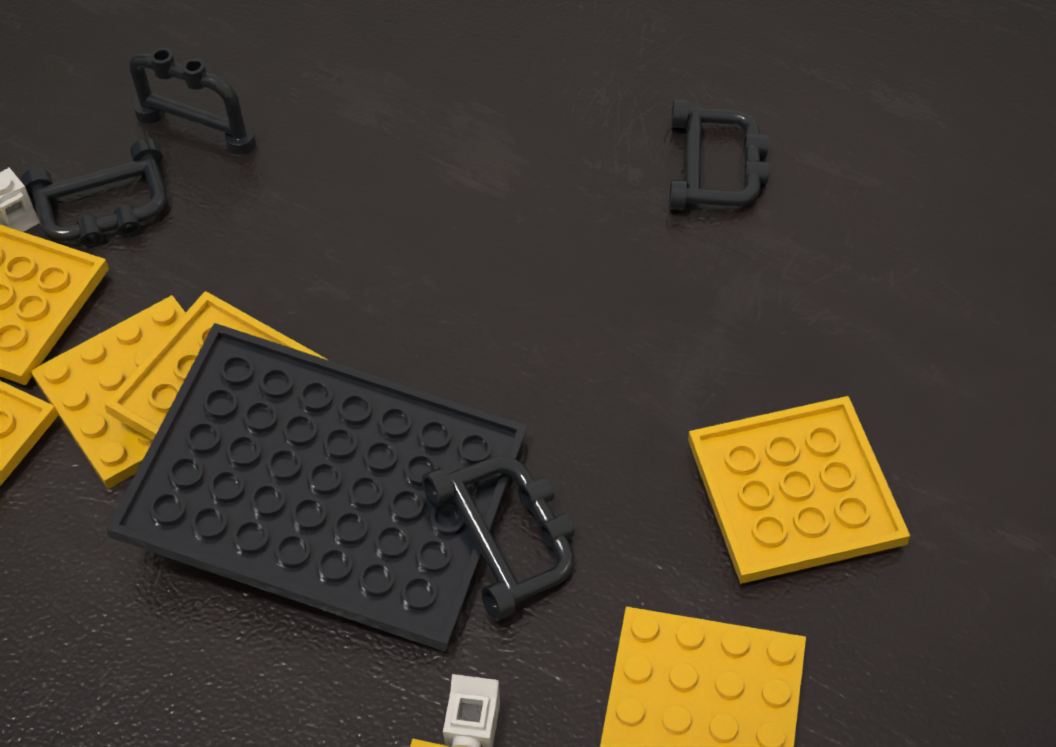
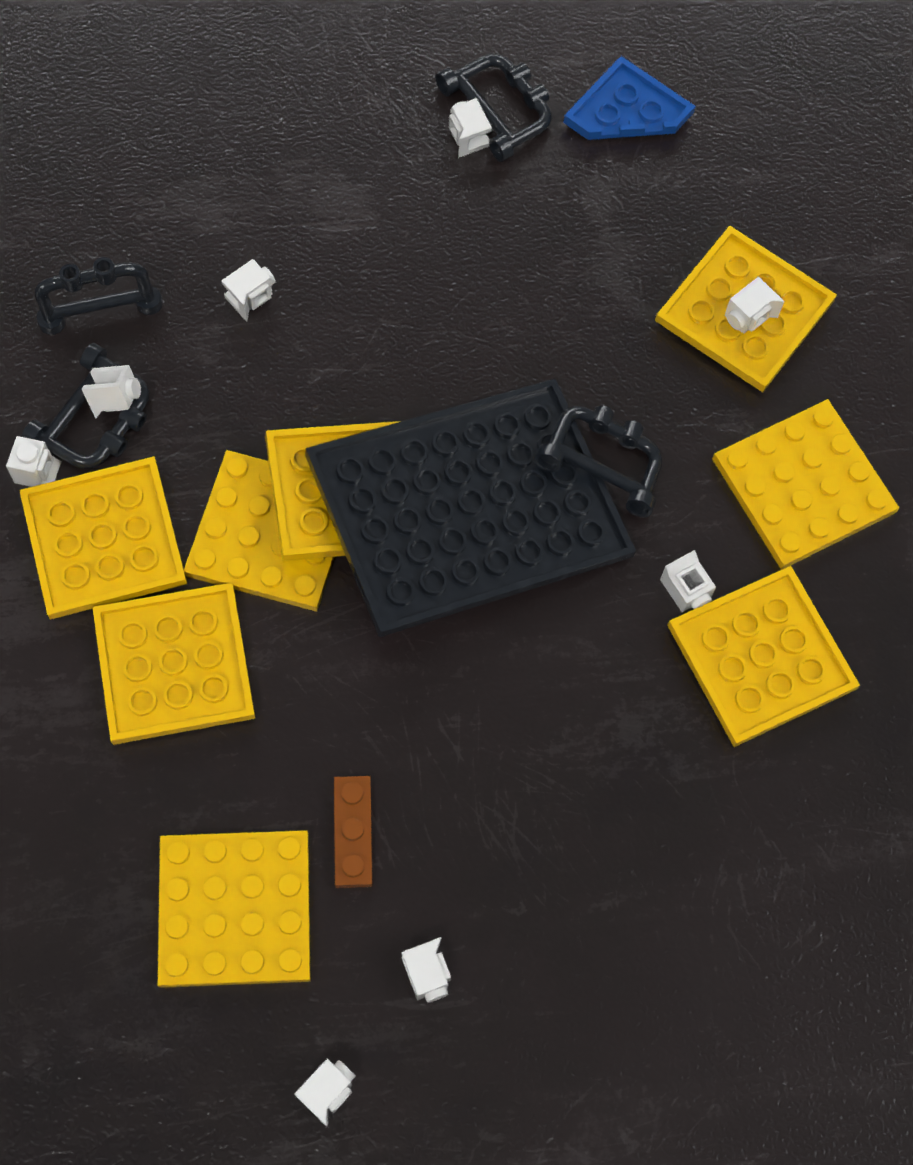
camera: 45 degrees left, 15 degrees up
(123, 186) = (113, 389): none -> white window
(327, 175) = (248, 287): none -> white window
(660, 160) = (469, 126): none -> white window
(791, 481) = (753, 306): none -> white window
(843, 228) = (628, 105): none -> blue plate

